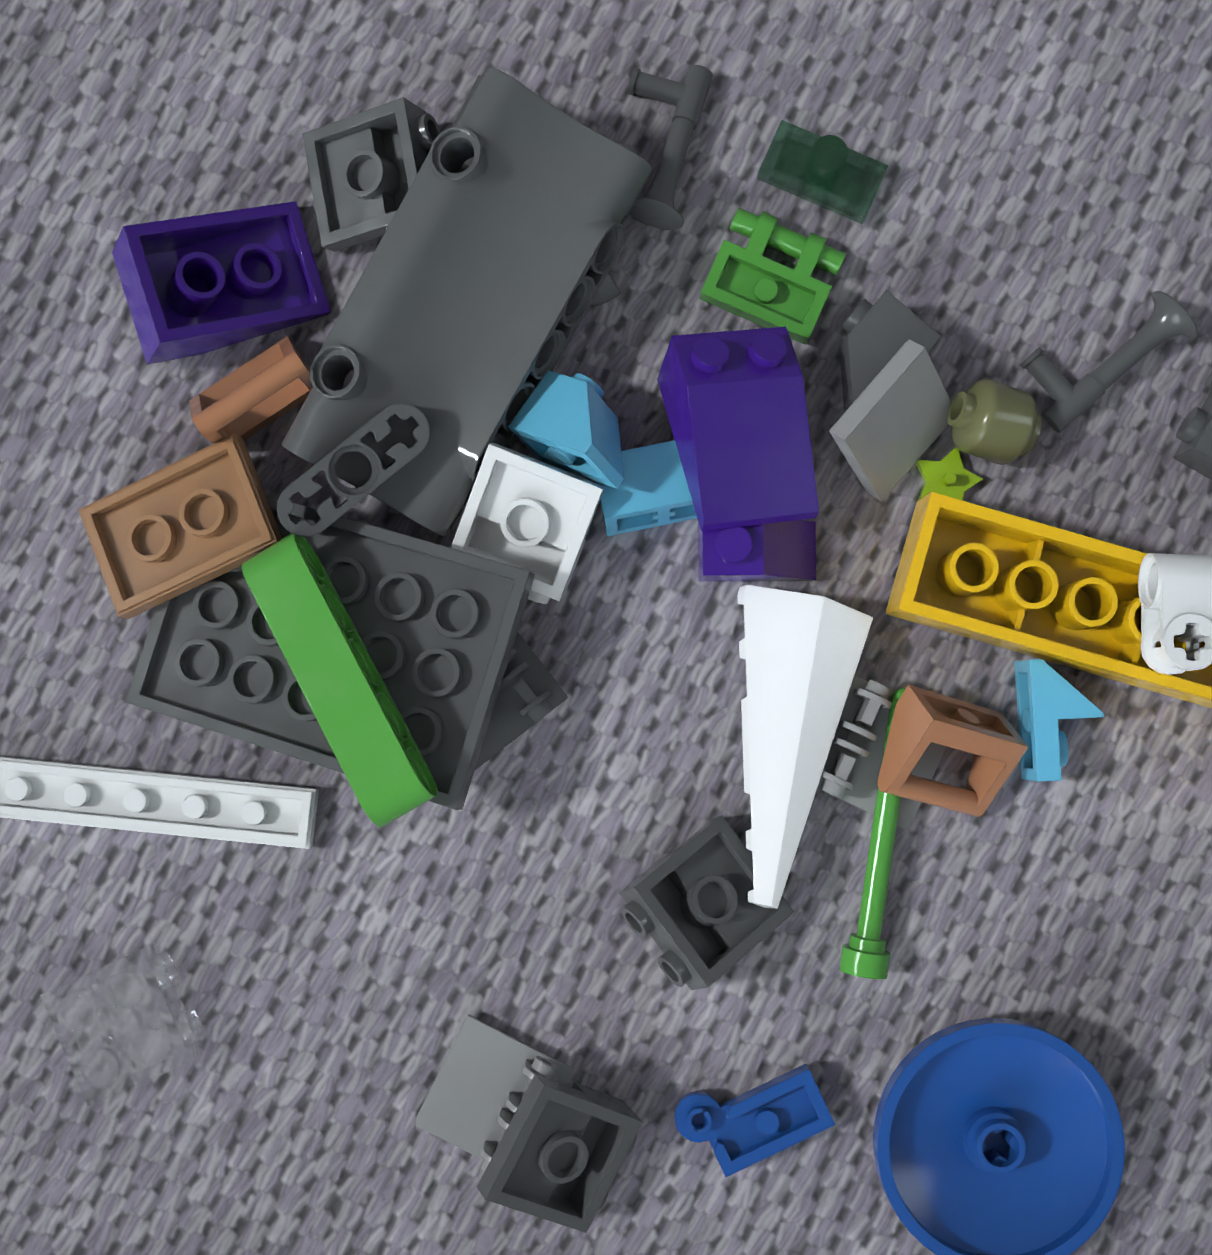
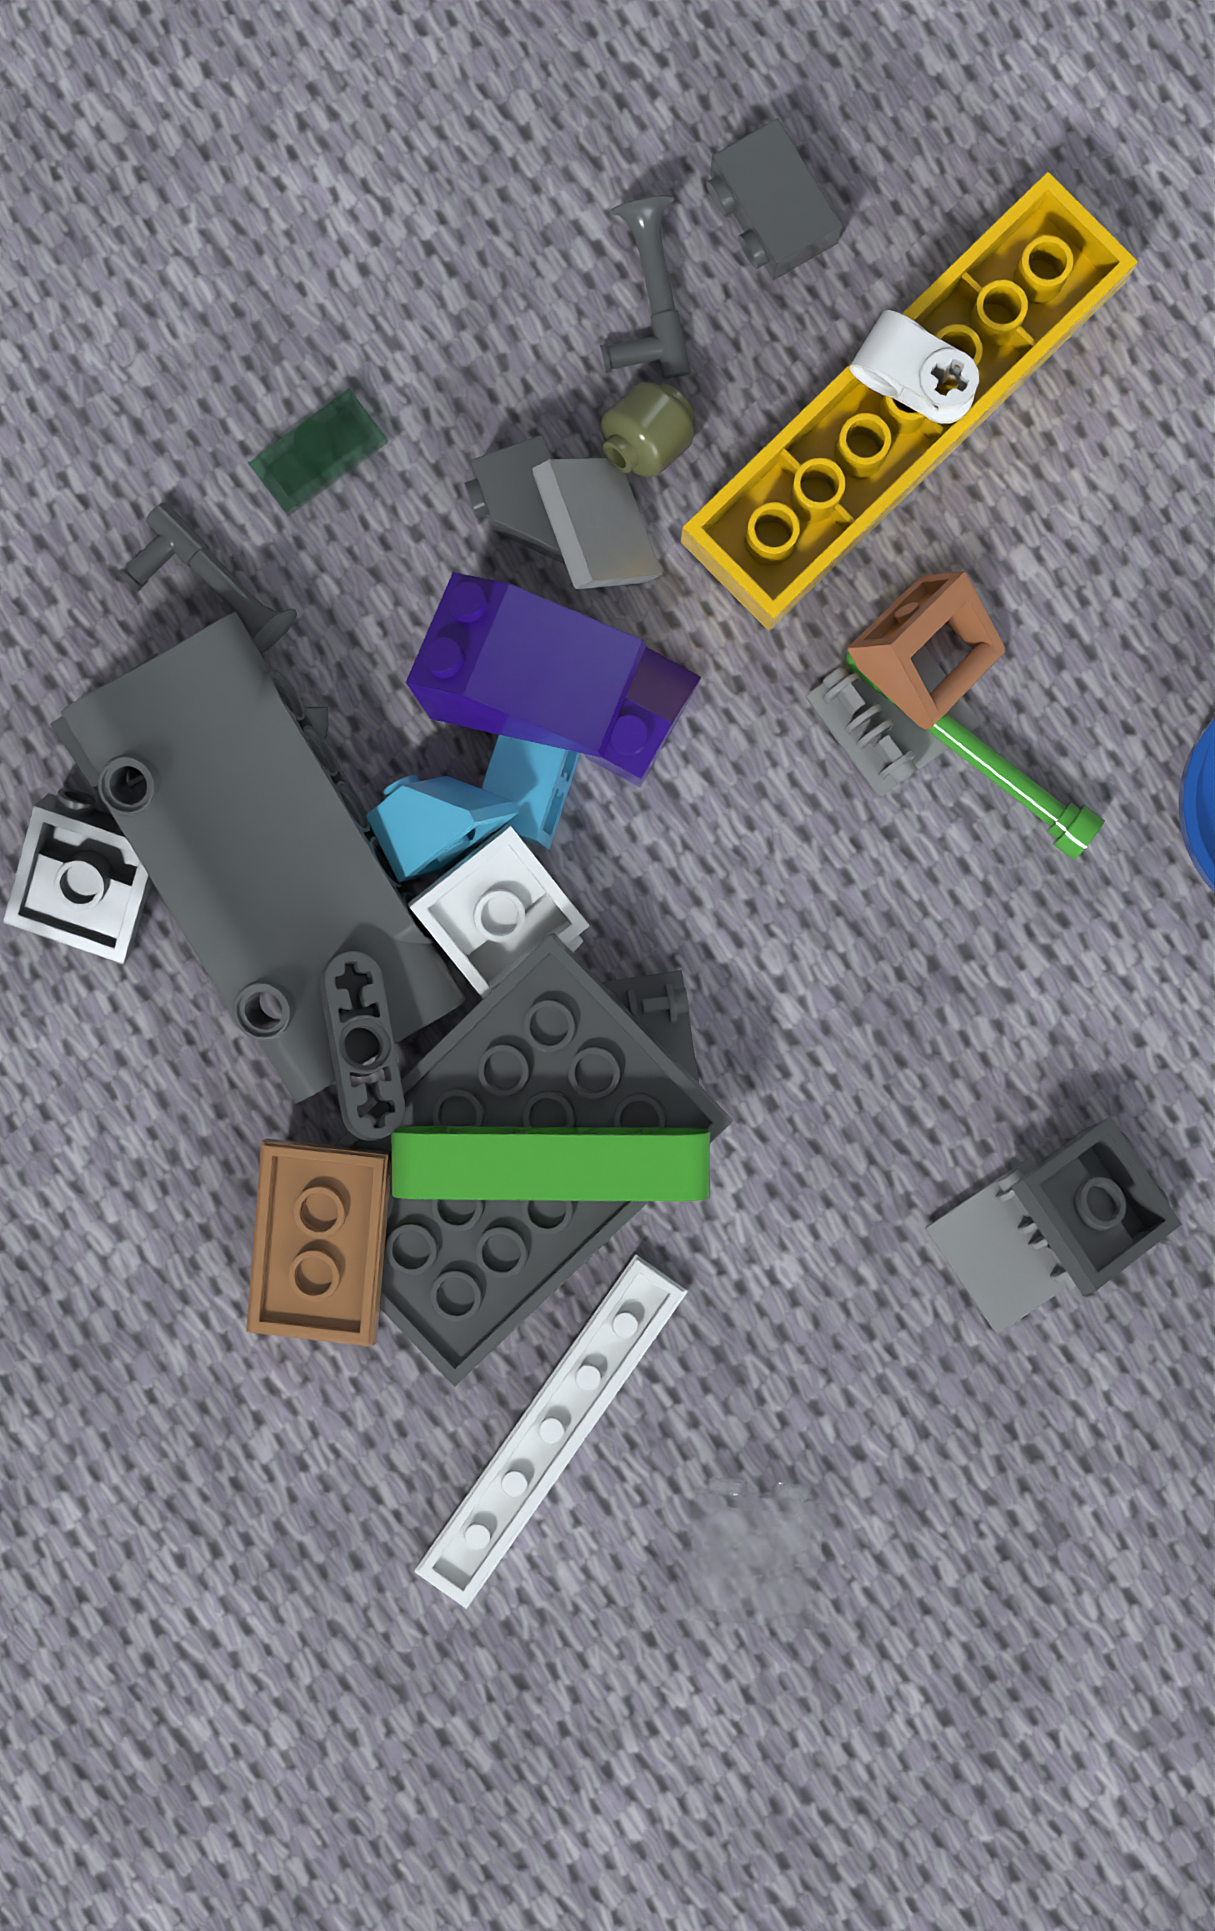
camera: 65 degrees left, 0 degrees up
(217, 279) = (100, 1079): dark purple slope -> none
(253, 394) = (226, 1103): nougat tile -> none
(700, 906) = (945, 950): dark grey plate -> none
(755, 1121) = (1169, 1014): blue hinge -> none
(764, 289) = (402, 569): bright green plate -> none
(797, 680) = (784, 745): white wedge -> none
(946, 476) = (674, 502): lime piece -> none
(1041, 701) = (931, 533): medium azure slope -> none

